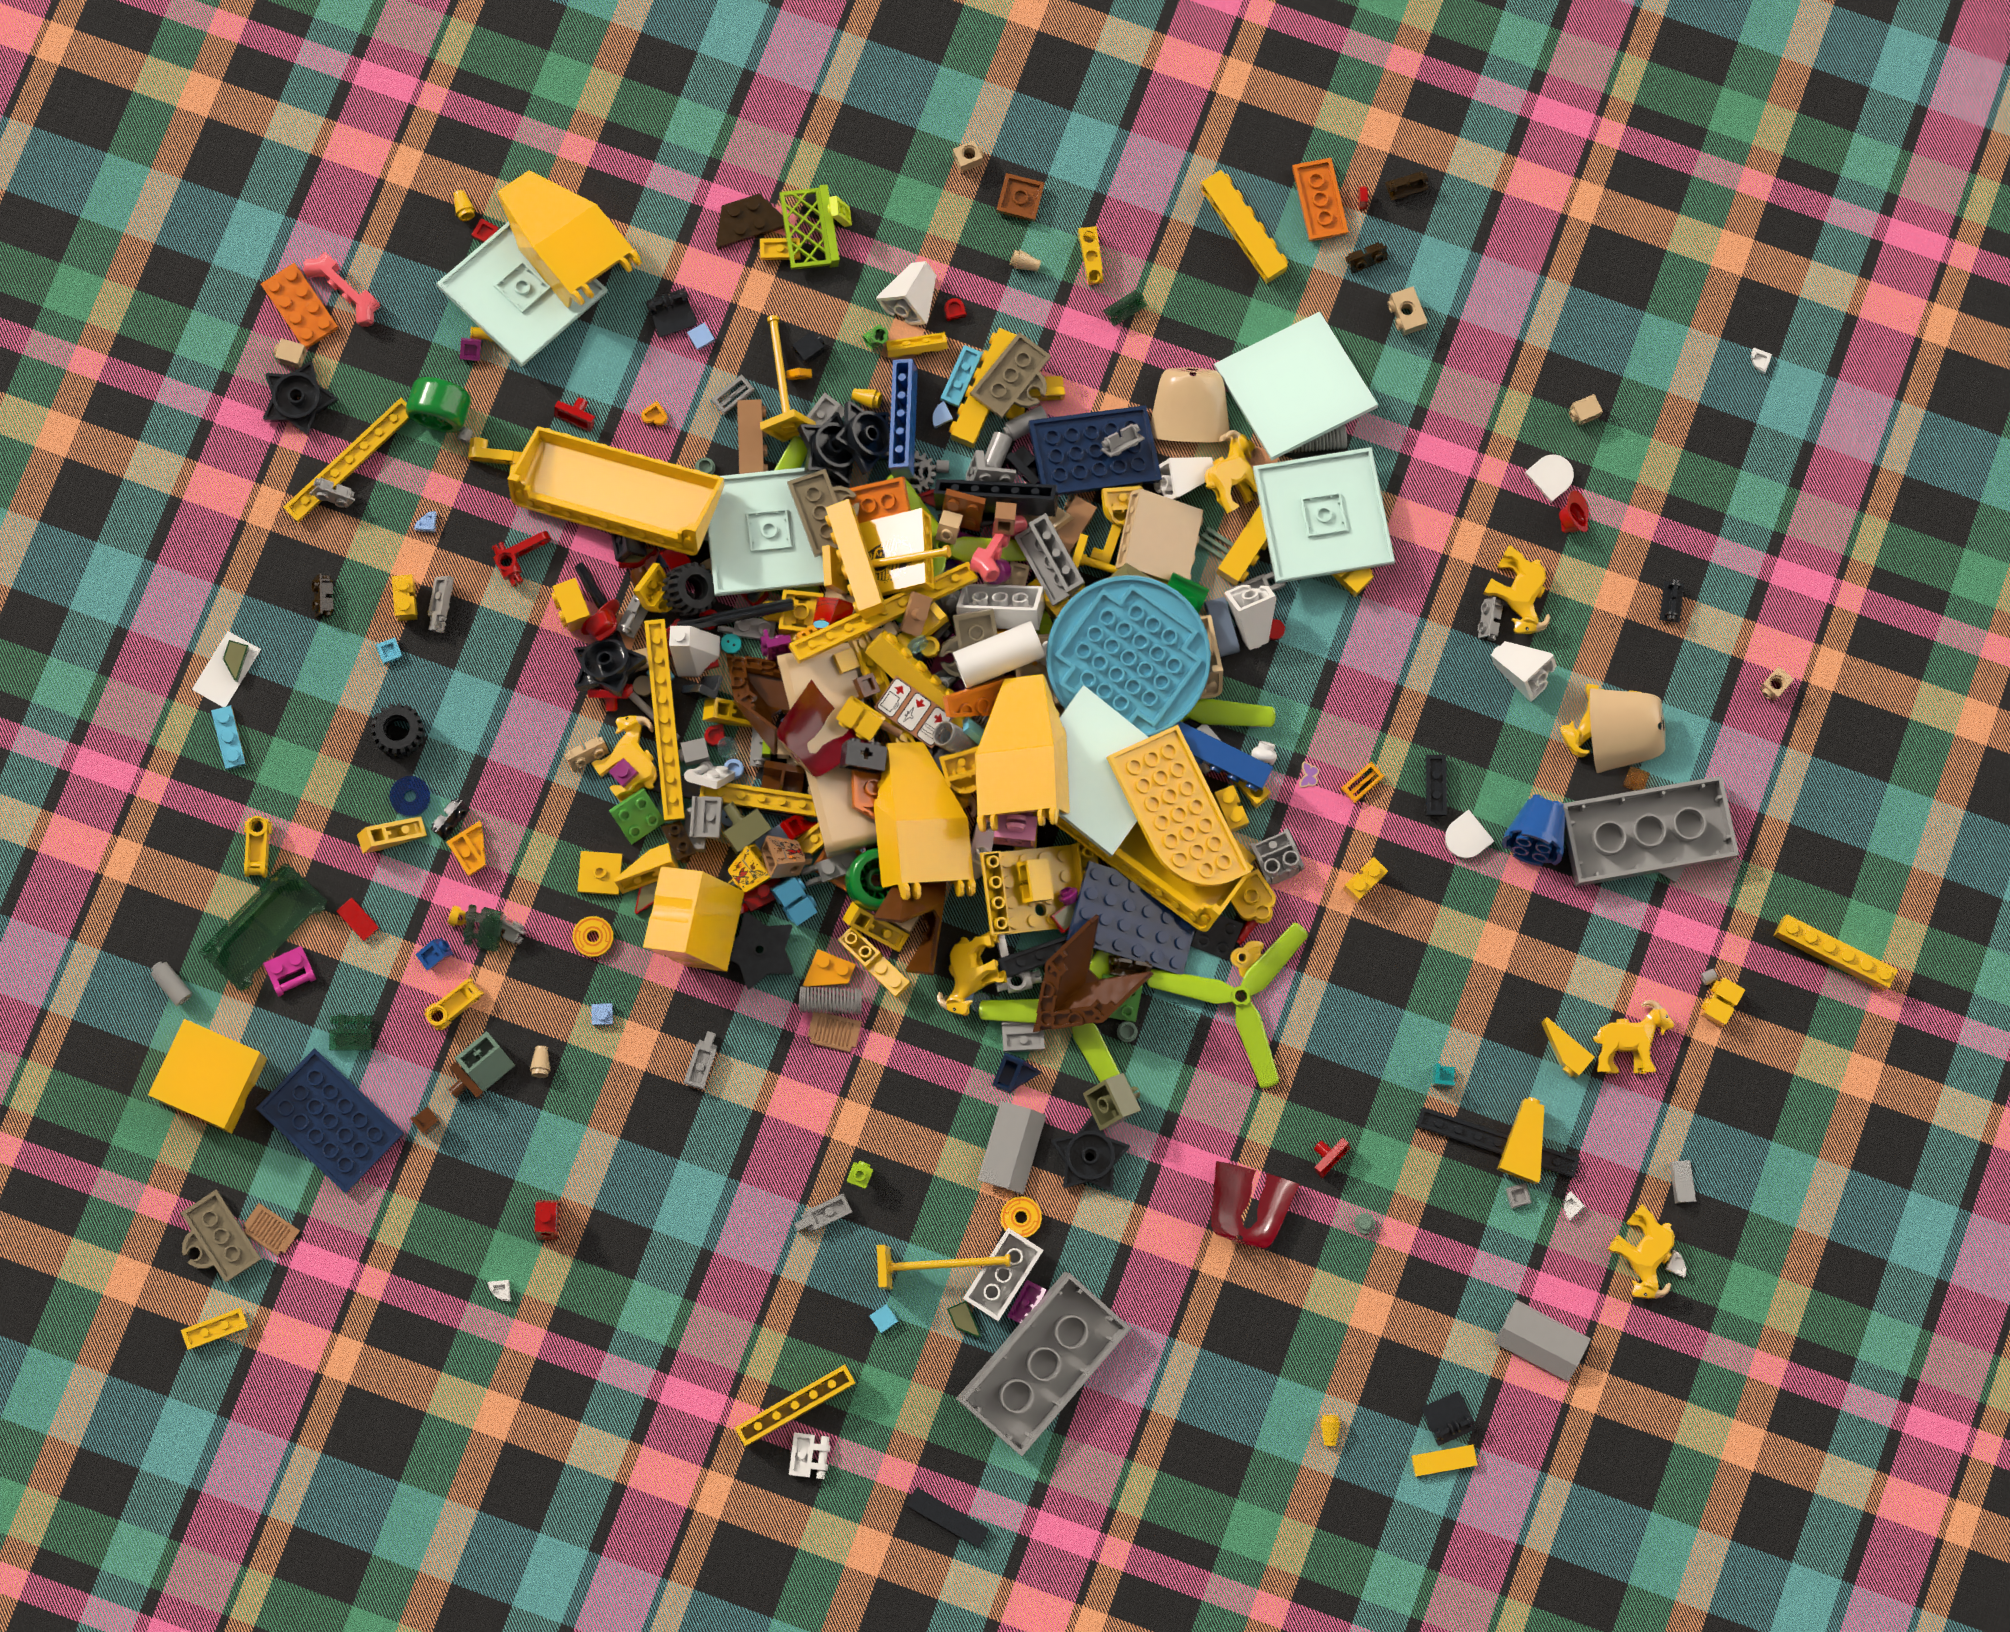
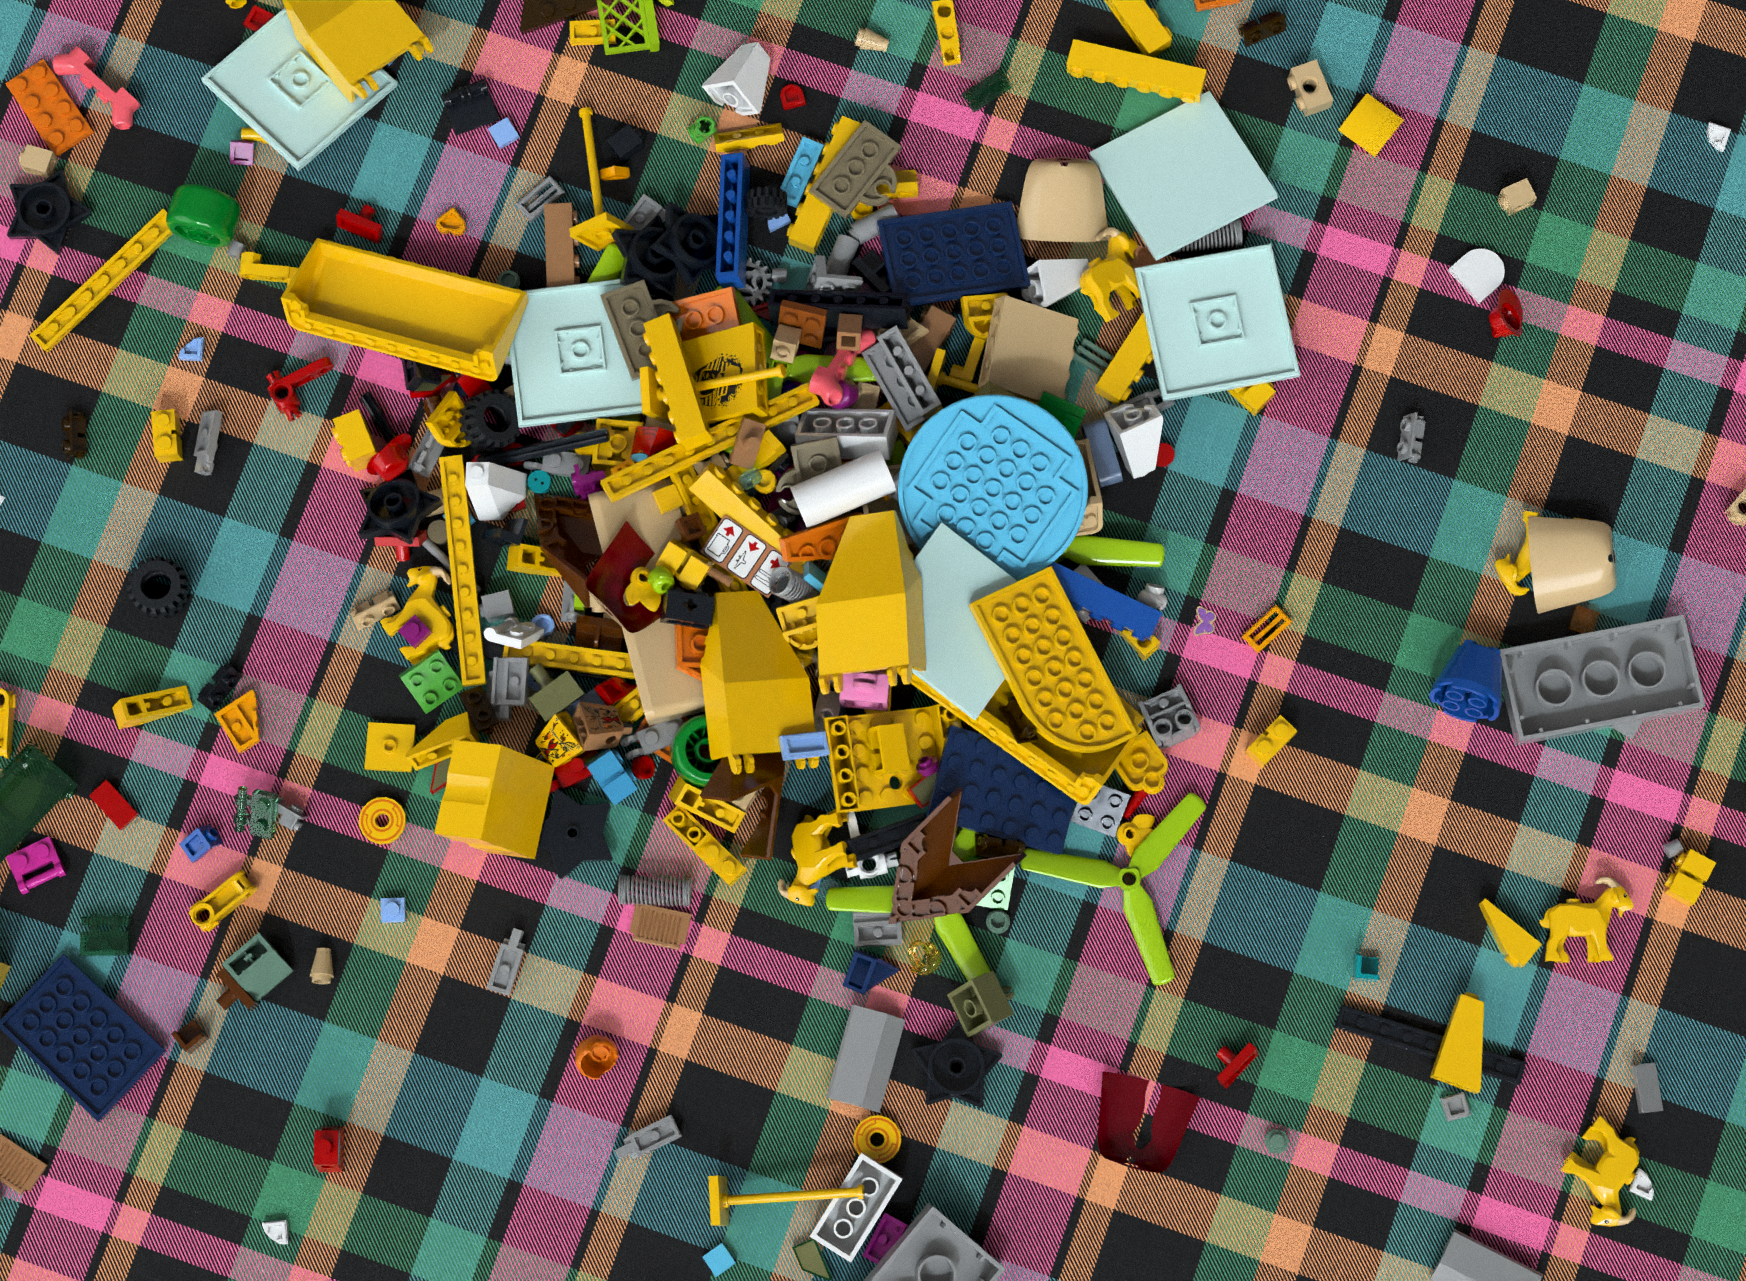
camera: 10 degrees right, 0 degrees up
(324, 491) = (74, 316): light grey hinge -> none
(389, 651) = (150, 496): medium azure tile -> none
(407, 784) = (161, 656): clear blue tile -> none
(455, 912) = (224, 795): yellow tile -> none
(714, 734) = (522, 587): red tile -> none
(727, 747) = (535, 600): clear light blue tile -> none
(778, 1142) = (596, 1056): none -> orange hair
(821, 893) = (643, 767): none -> red tile
(827, 741) = (642, 591): none -> yellow plate
(828, 970) = (653, 856): light orange wing -> none
(841, 730) = (661, 579): none -> lime piece
(860, 1174) = (690, 1092): lime bracket -> none
(867, 397) = (694, 198): yellow cone -> none
(932, 403) = (766, 203): none -> black tyre
(963, 876) = (804, 745): none -> light blue tile
(1071, 1062) = (932, 954): none -> clear yellow piece
(1114, 445) = (975, 246): light grey hinge -> none
(1148, 860) = (1018, 723): none -> dark brown hinge
(1228, 803) = (1112, 659): yellow piece -> none
(1256, 293) = (1136, 71): none -> yellow brick
(1436, 785) = (1351, 631): black plate -> none
(1460, 344) = (1371, 125): none -> yellow slope
(1467, 836) = (1388, 690): white tile -> none
(1523, 591) = (1448, 406): yellow animal -> none
(1524, 667) = (1451, 493): white slope -> none
(1572, 1205) = (1518, 1118): white tile -> none
(1671, 601) = (1621, 414): black hinge -> none

